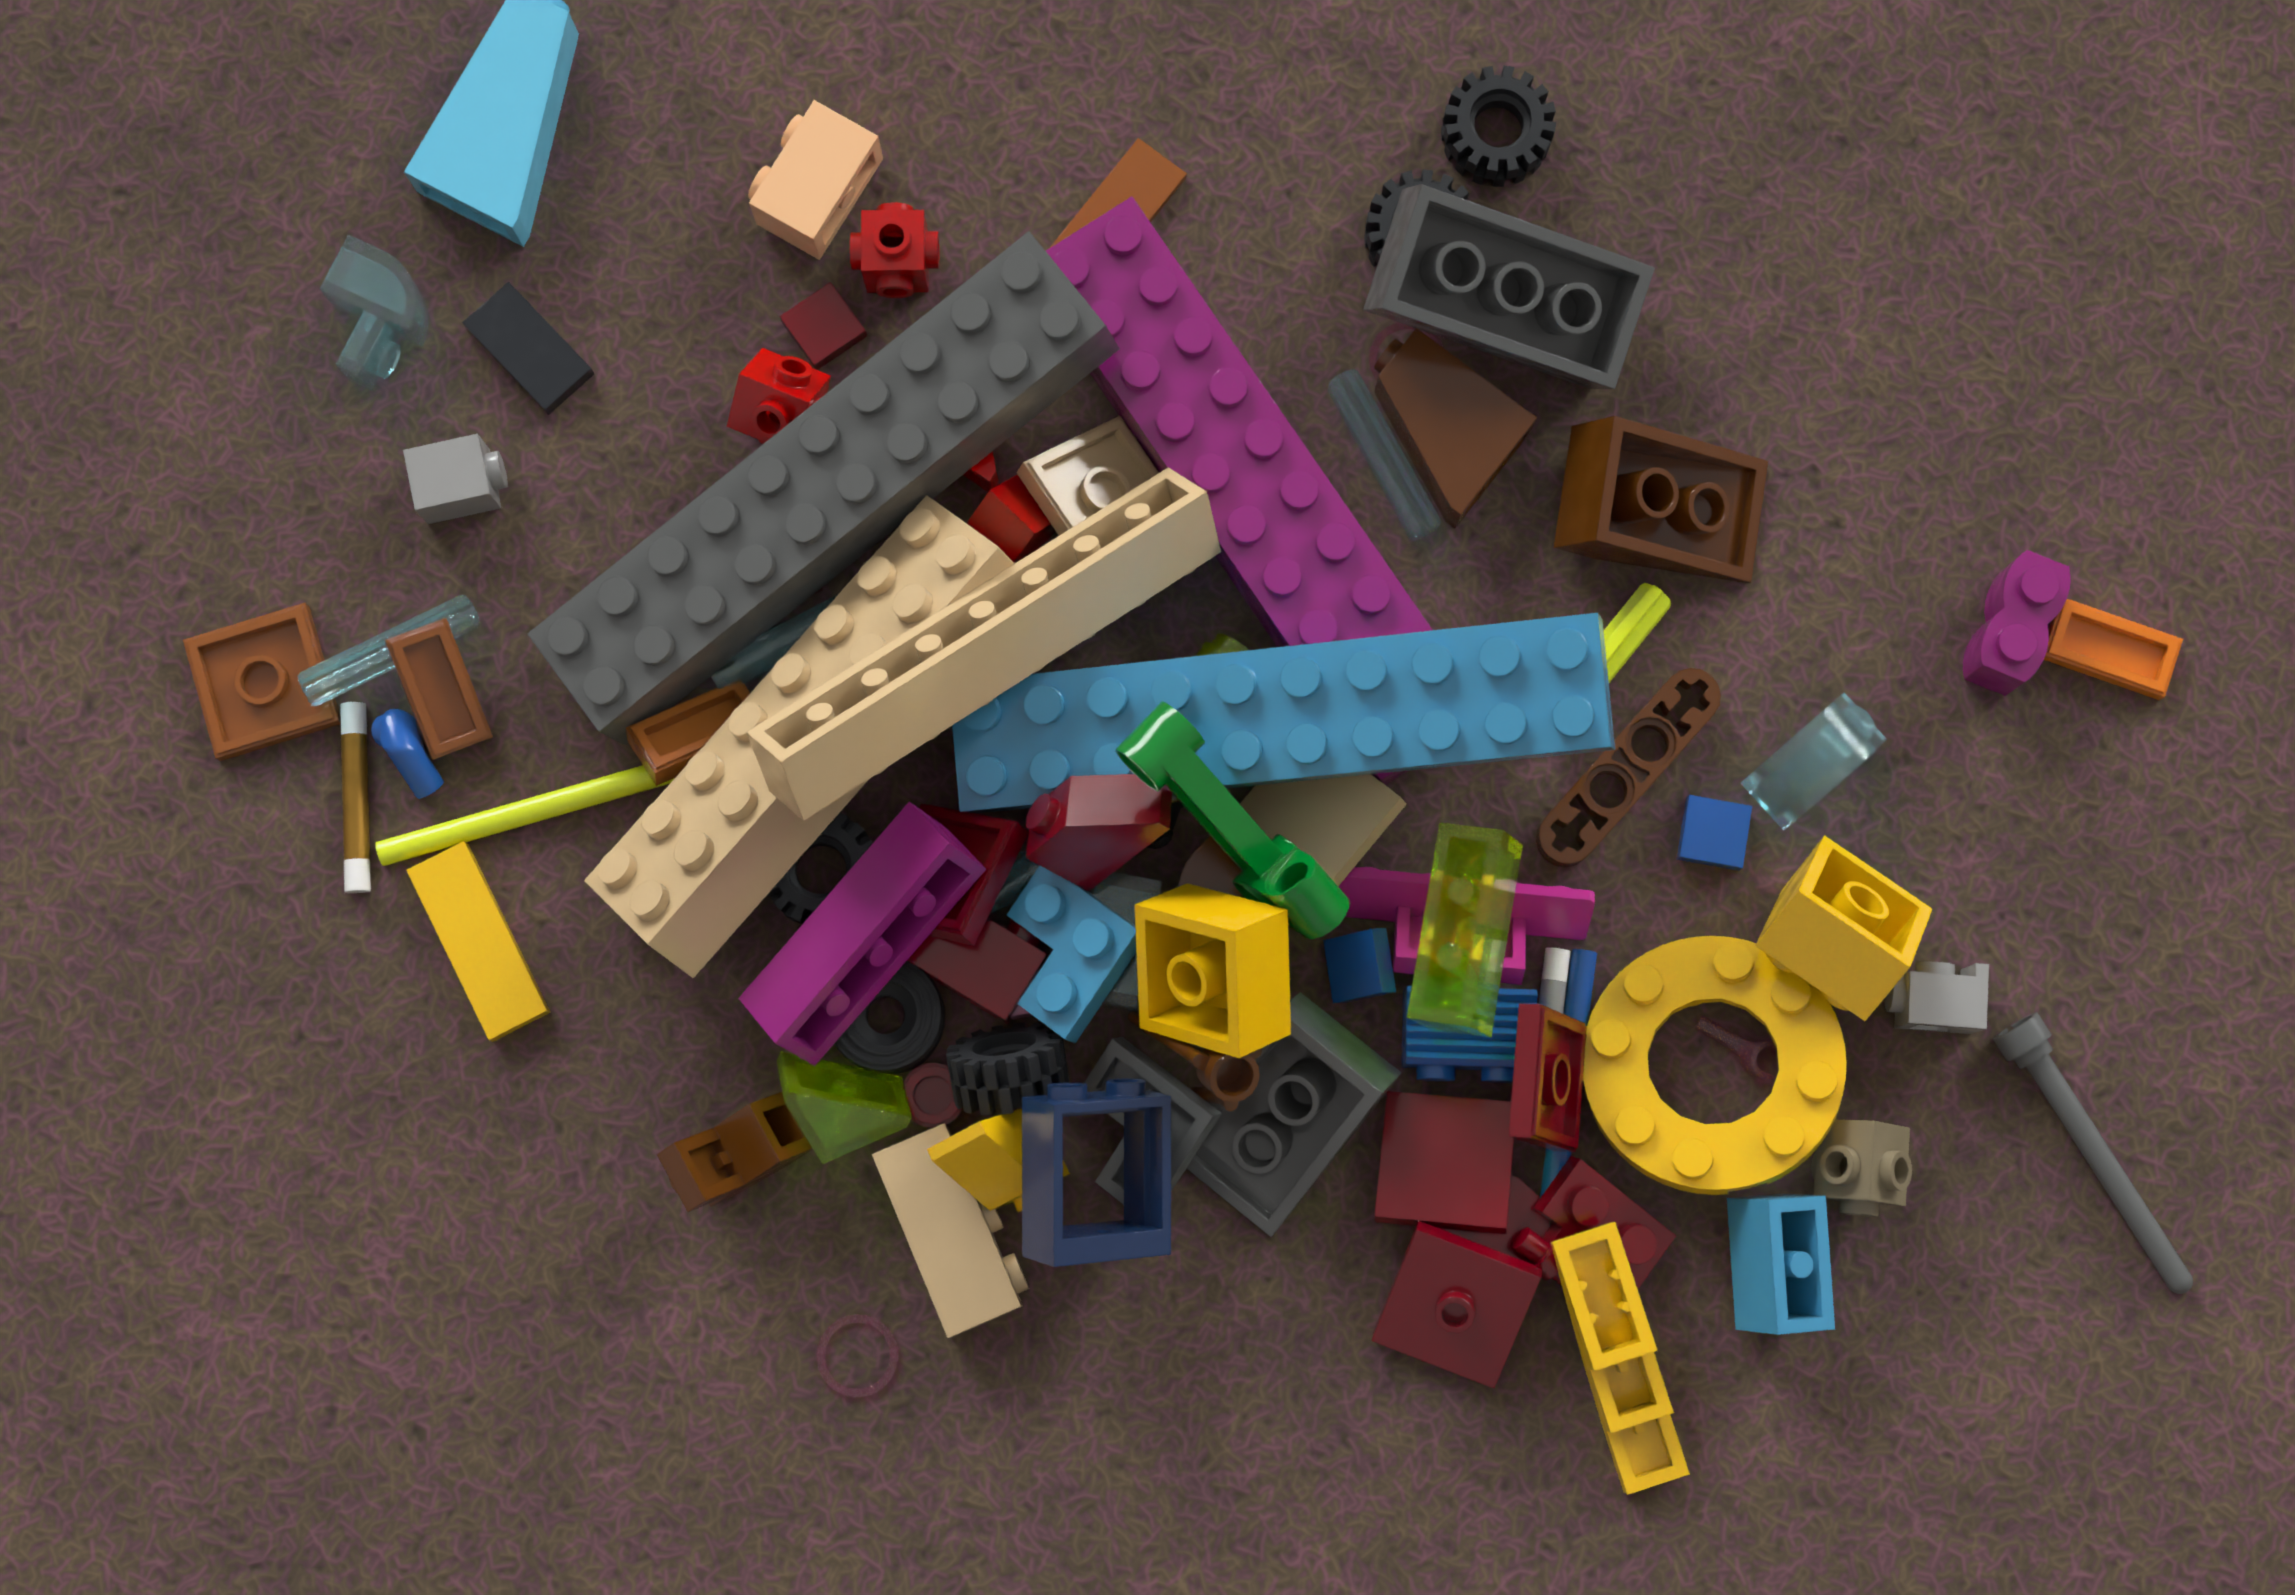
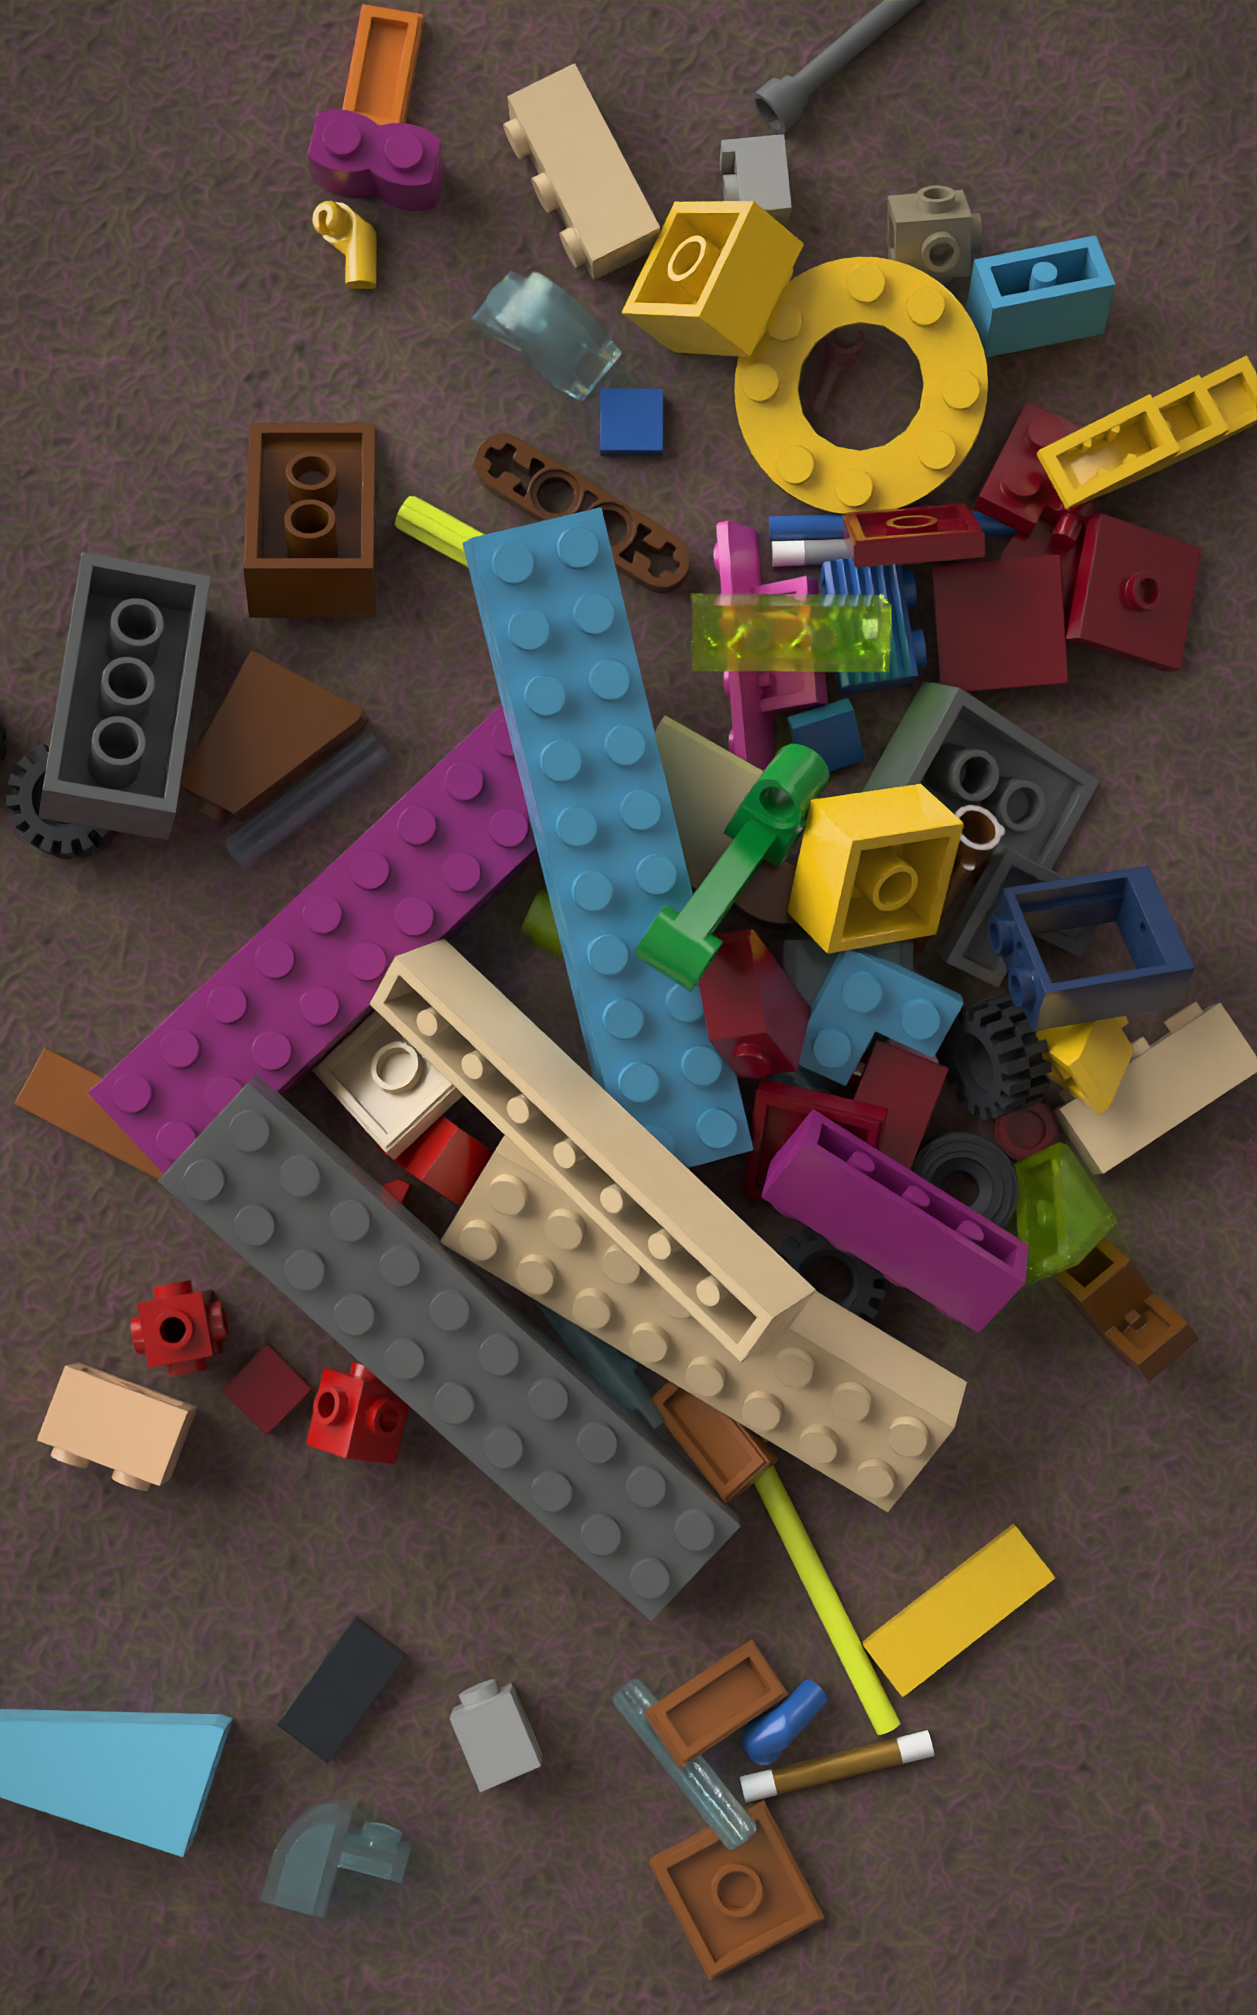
camera: 100 degrees left, 5 degrees up
(1943, 591) = (353, 238): none -> yellow arm
(1977, 822) = (581, 173): none -> tan brick

